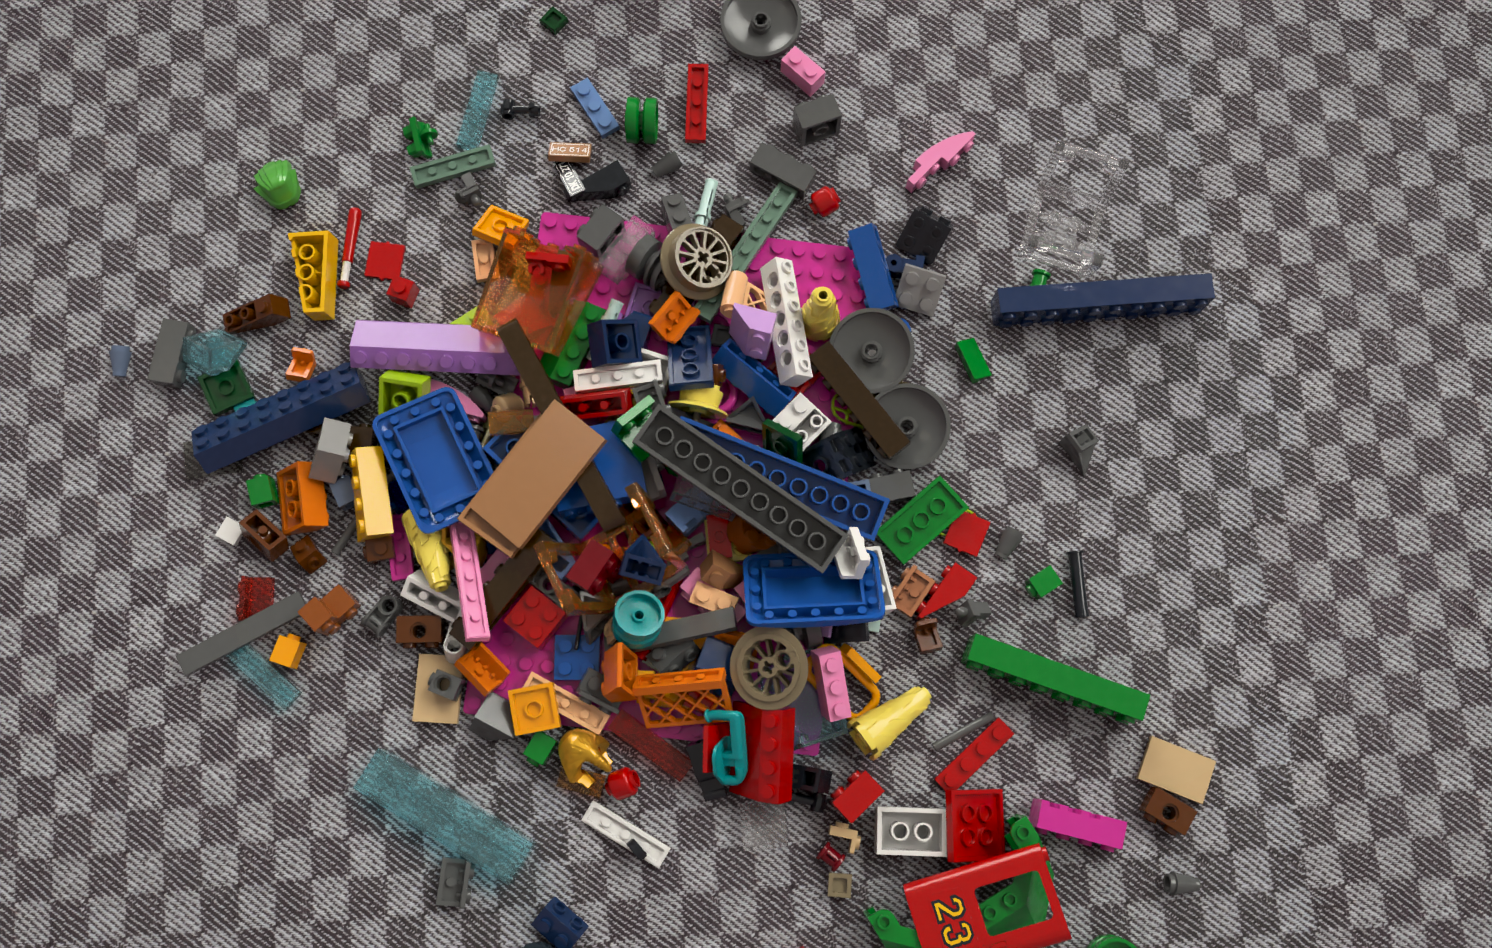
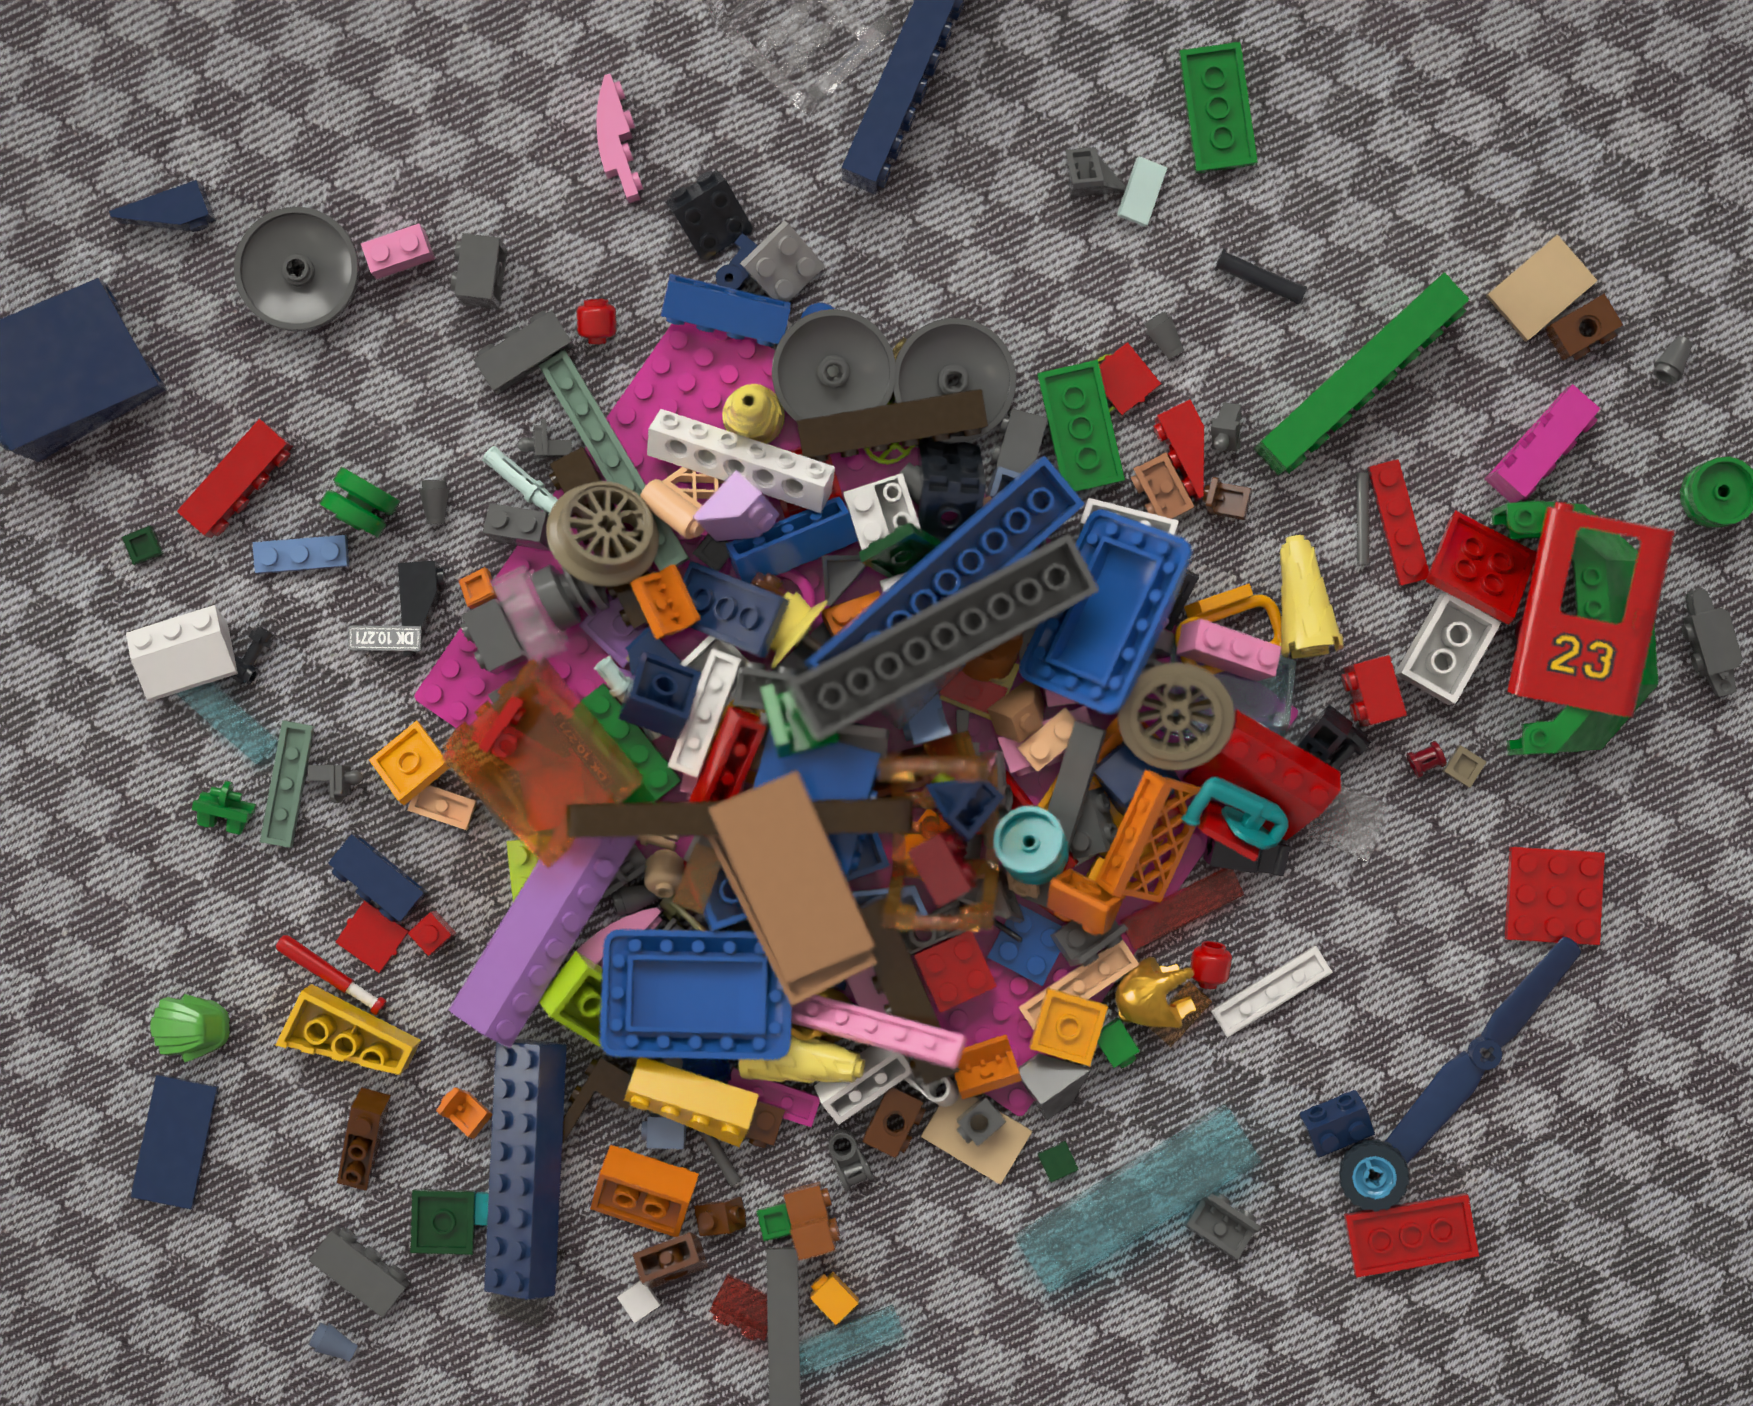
camera: 60 degrees left, 10 degrees up
(204, 210) = (174, 1141): none -> dark blue tile
(212, 351) = (387, 1215): clear light blue slope -> none
(262, 491) = (608, 1237): green brick -> none
(319, 587) = (774, 1221): none -> green tile
(331, 451) = (608, 1124): light grey brick -> none
(421, 244) = (376, 878): none -> dark blue brick
(445, 751) = (1057, 1161): none -> dark green tile
(500, 68) = (182, 653): none -> white slope
(570, 152) = (349, 619): medium nougat tile -> none
(619, 49) = (235, 479): none -> red brick
(627, 211) = (477, 588): none -> orange tile
(636, 849) = (1298, 987): black tile -> none
(696, 103) = (367, 415): red plate -> none
(842, 830) = (1404, 729): tan bracket -> none
(852, 556) = (1097, 542): white bracket -> none
(972, 360) = (908, 246): green slope -> none
(1040, 277) = (850, 104): green bush -> none
(1042, 583) = (1237, 321): green brick -> none
(1088, 482) = (1142, 191): none -> light aqua tile
(1167, 502) = (1218, 107): none -> green plate

